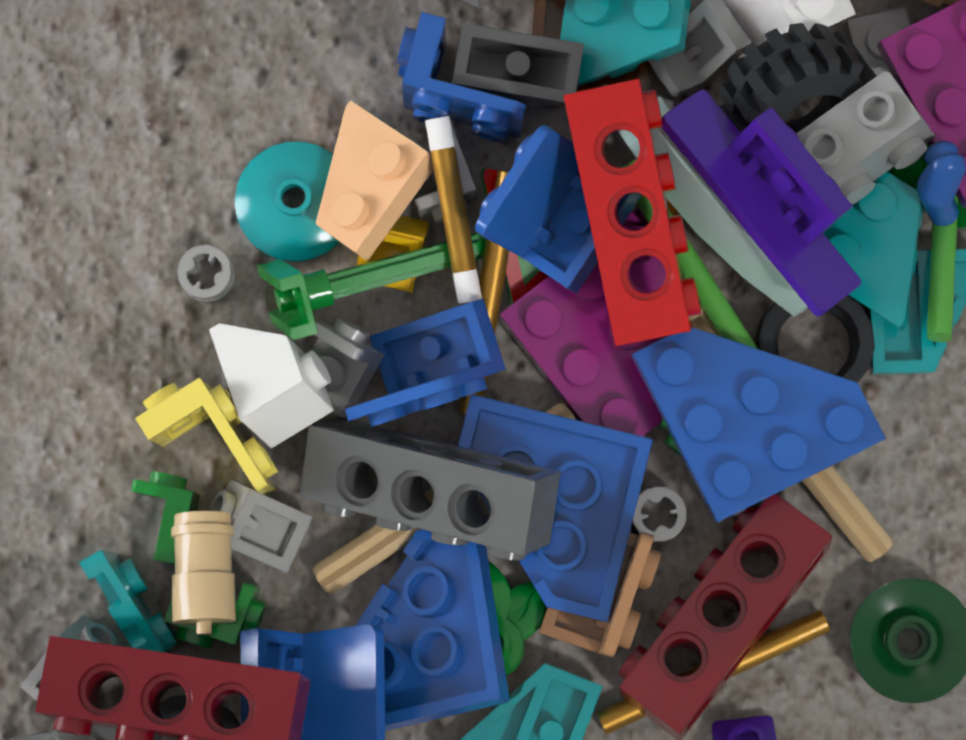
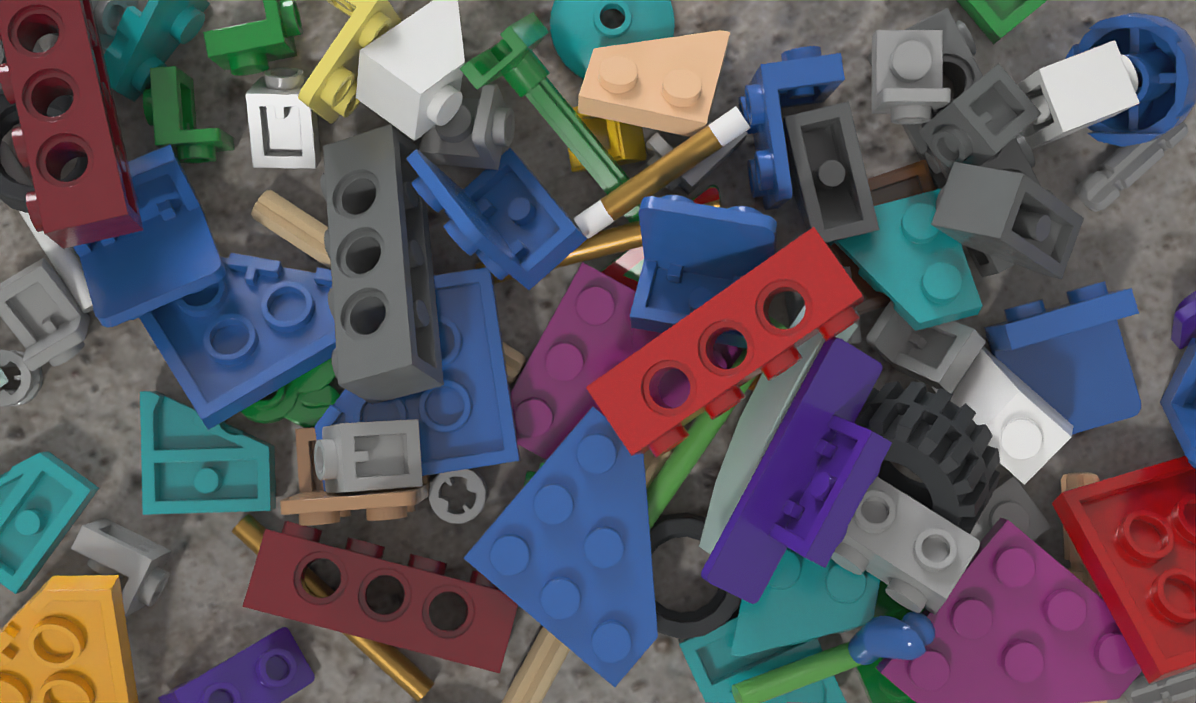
camera: 65 degrees right, 5 degrees up
(203, 570) = (204, 82): tan piece -> none
(594, 564) = (369, 456): none -> light grey bracket

